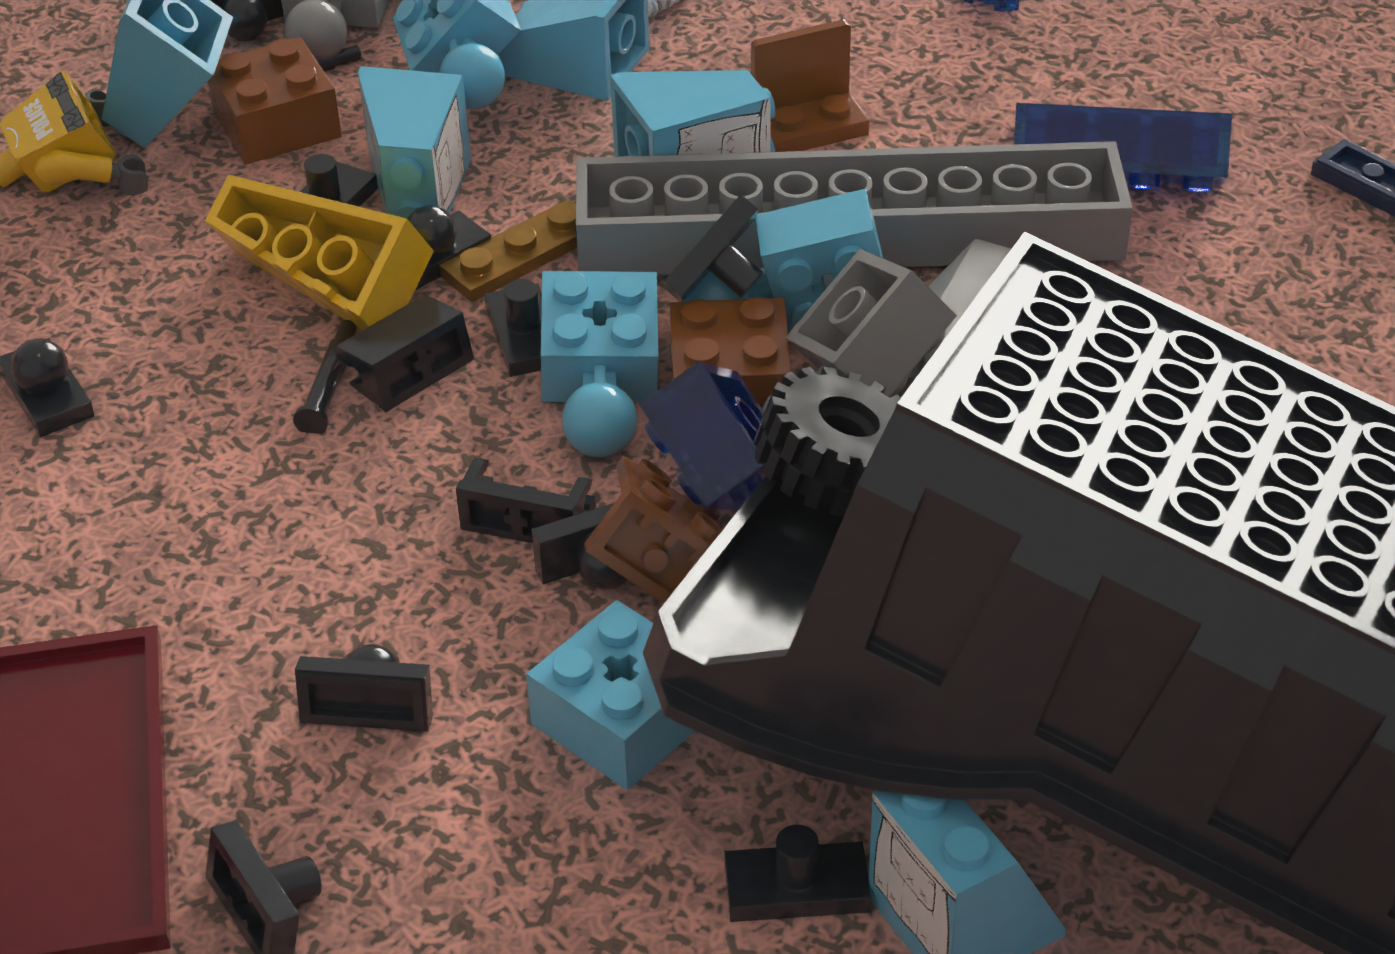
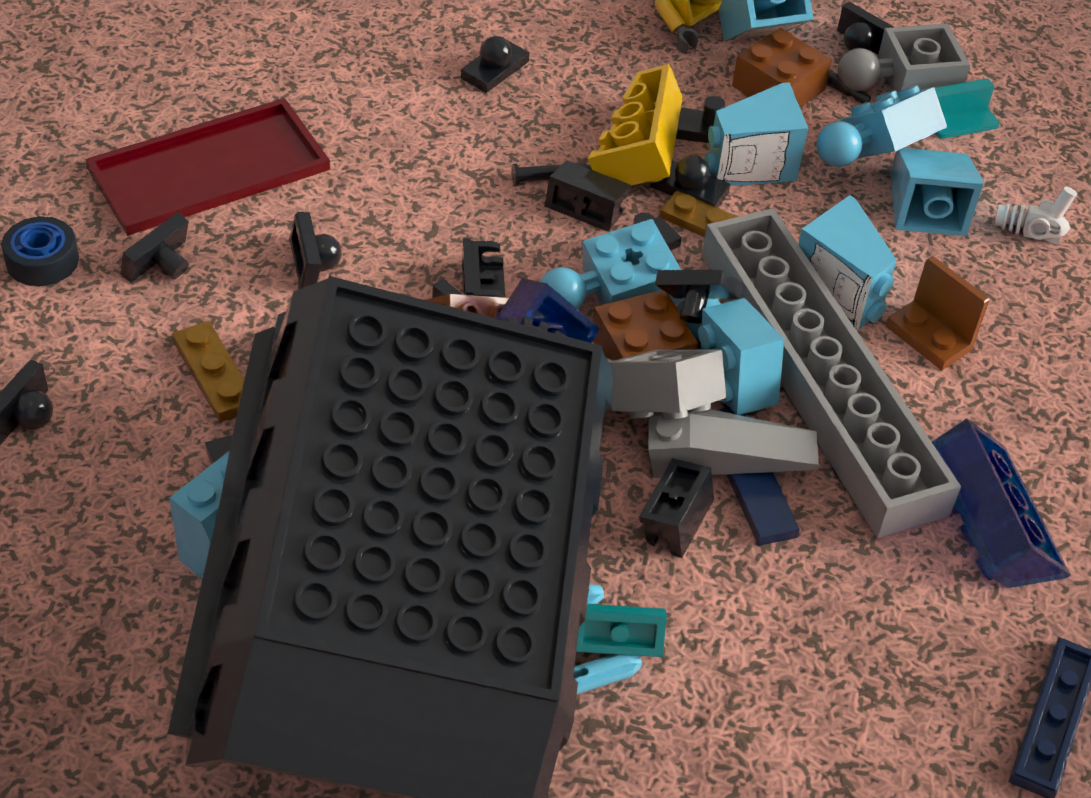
camera: 65 degrees right, 5 degrees up
(565, 874) = (211, 368): none -> pearl gold plate

